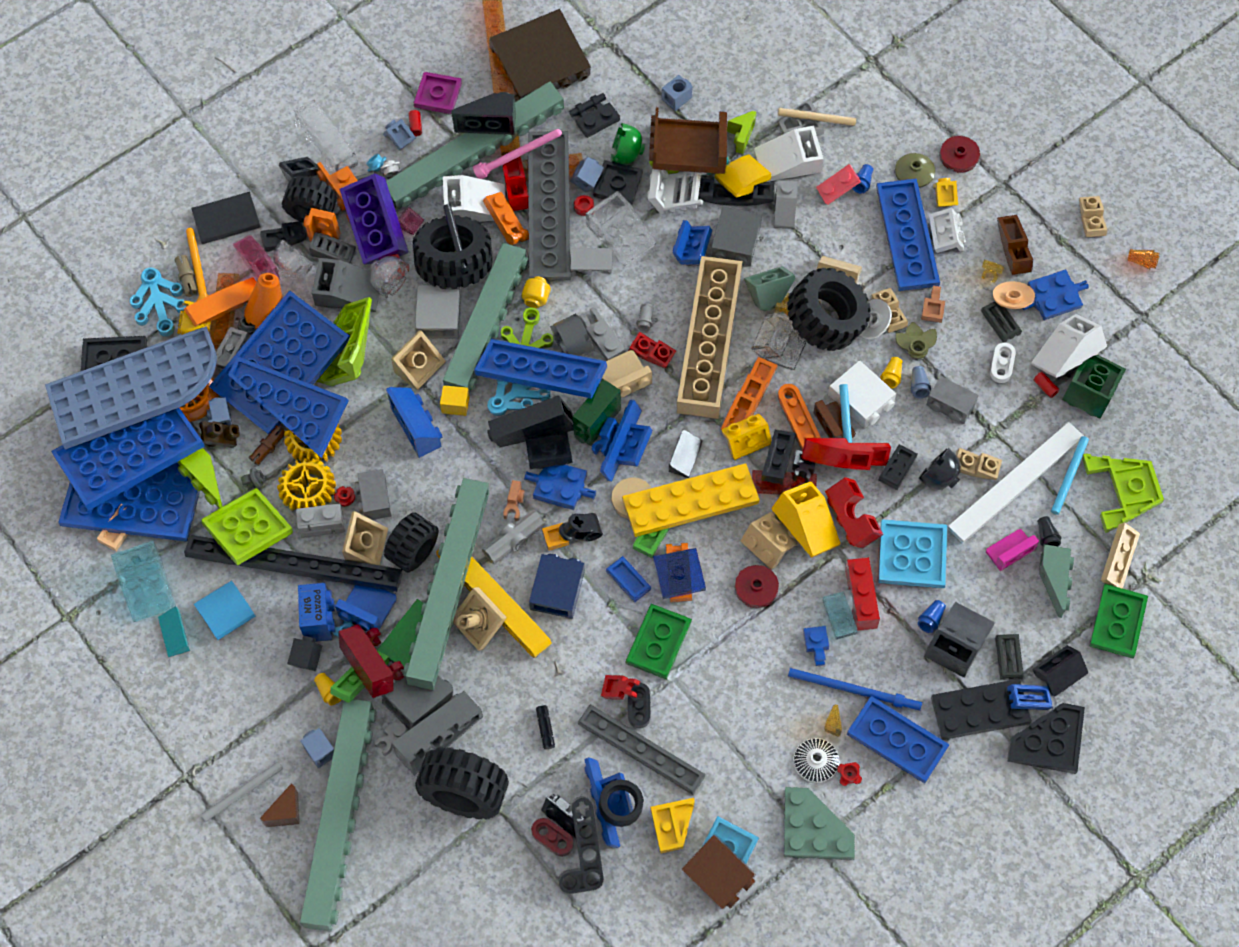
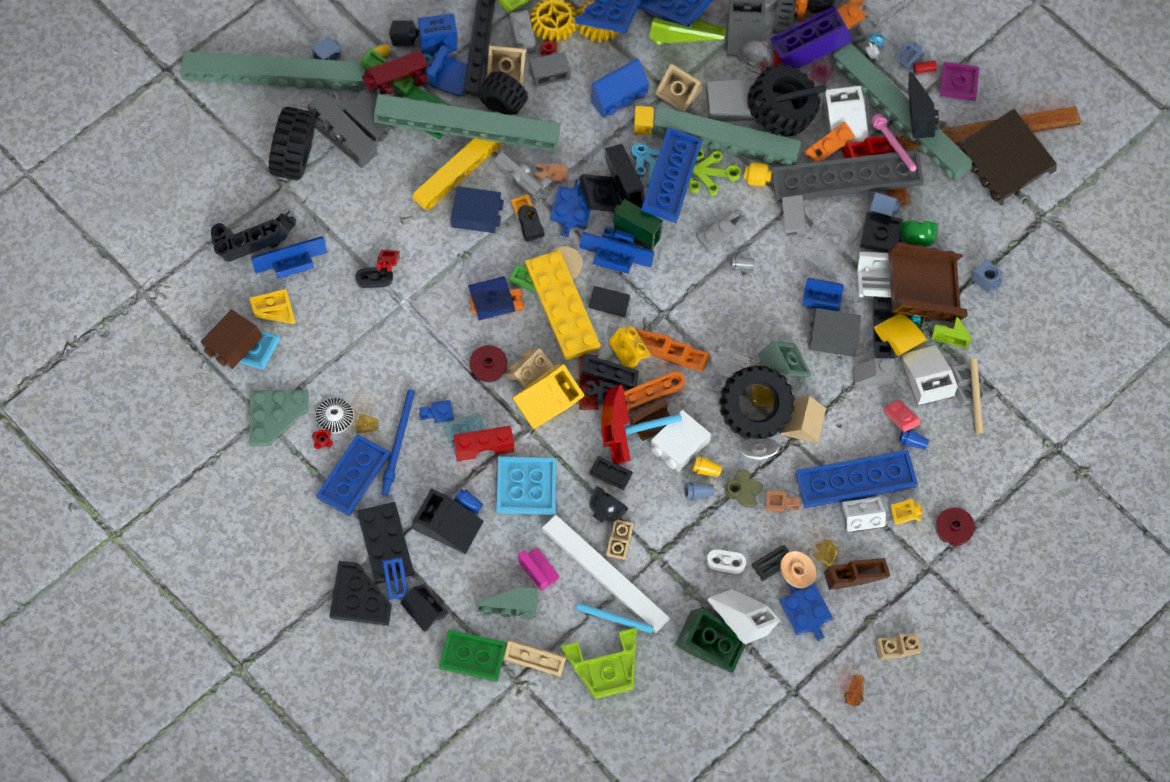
camera: 80 degrees right, 0 degrees up
(284, 810) = (276, 35): reddish brown slope -> none
(466, 619) = (440, 151): tan plate -> none
(545, 727) = (352, 211): black axle -> none
(553, 837) = (257, 217): dark red plate -> none
(572, 336) = (710, 202): dark grey brick -> none
(583, 204) = (856, 208): red tile -> none
(597, 120) = (951, 215): black plate -> none
(623, 785) = (280, 274): black tyre -> none
(627, 373) = (681, 249): tan bracket -> none
(628, 579) = (488, 265): blue tile -> none
(641, 749) = (337, 283): dark grey tile -> none
(652, 351) = (710, 270): red slope -> none
(658, 641) = (433, 291): green tile -> none
(709, 337) = (725, 312): tan brick -> none
(843, 499) = (572, 426): red arch -> none
(898, 319) = (773, 466): tan slope -> none
(924, 173) = (929, 495): olive dish -> none
(952, 400) = (681, 516): flat silver brick -> none
(1010, 674) = (437, 573): pearl dark grey tile -> none
(1046, 384) = (703, 602): red piece -> none
(1048, 532) = (553, 598): black cone -> none

